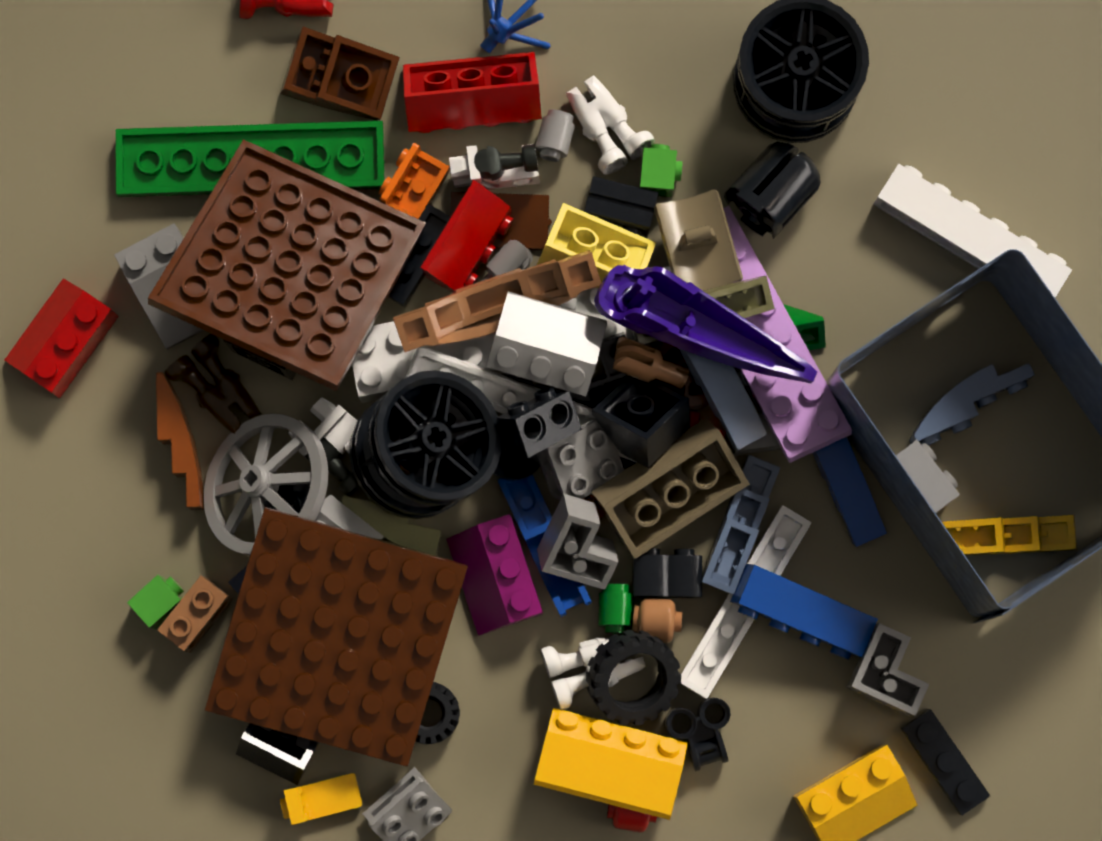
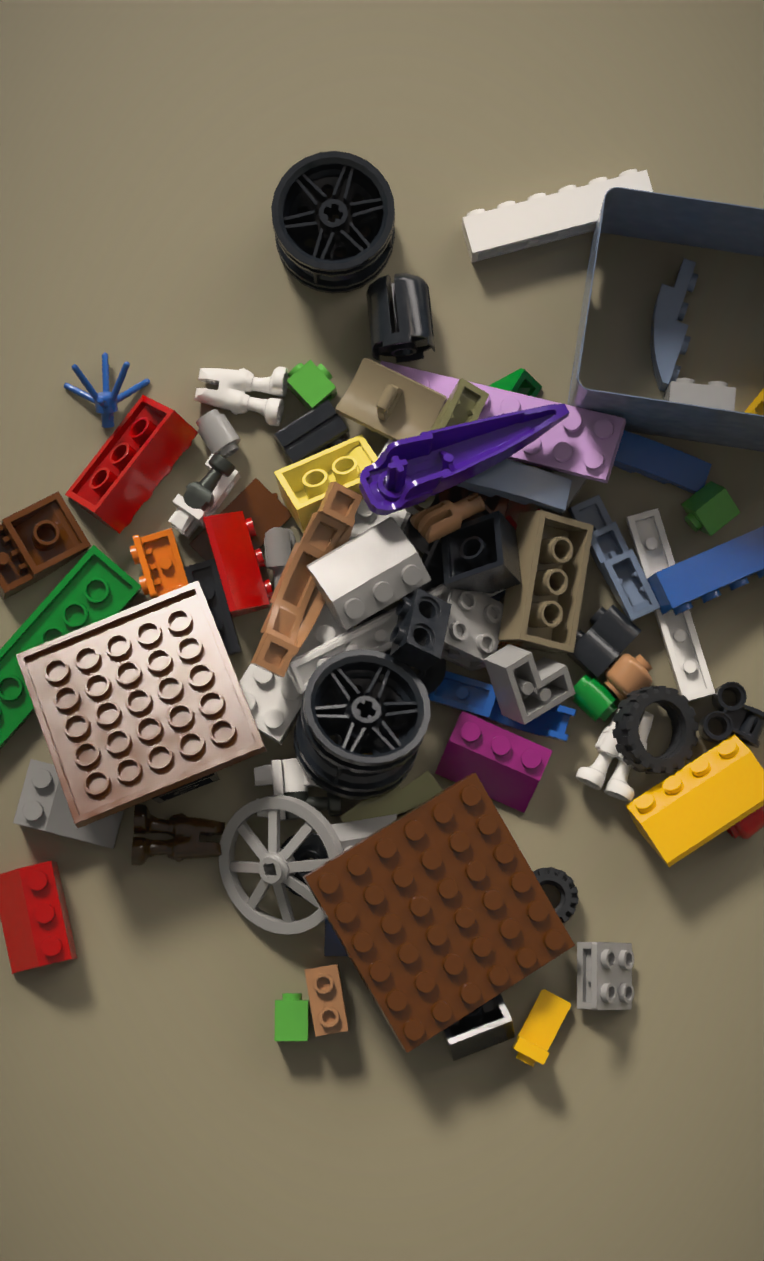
camera: 45 degrees left, 0 degrees up
(175, 430) = (180, 894): dark orange slope -> none
(848, 563) = (710, 509): none -> bright green brick

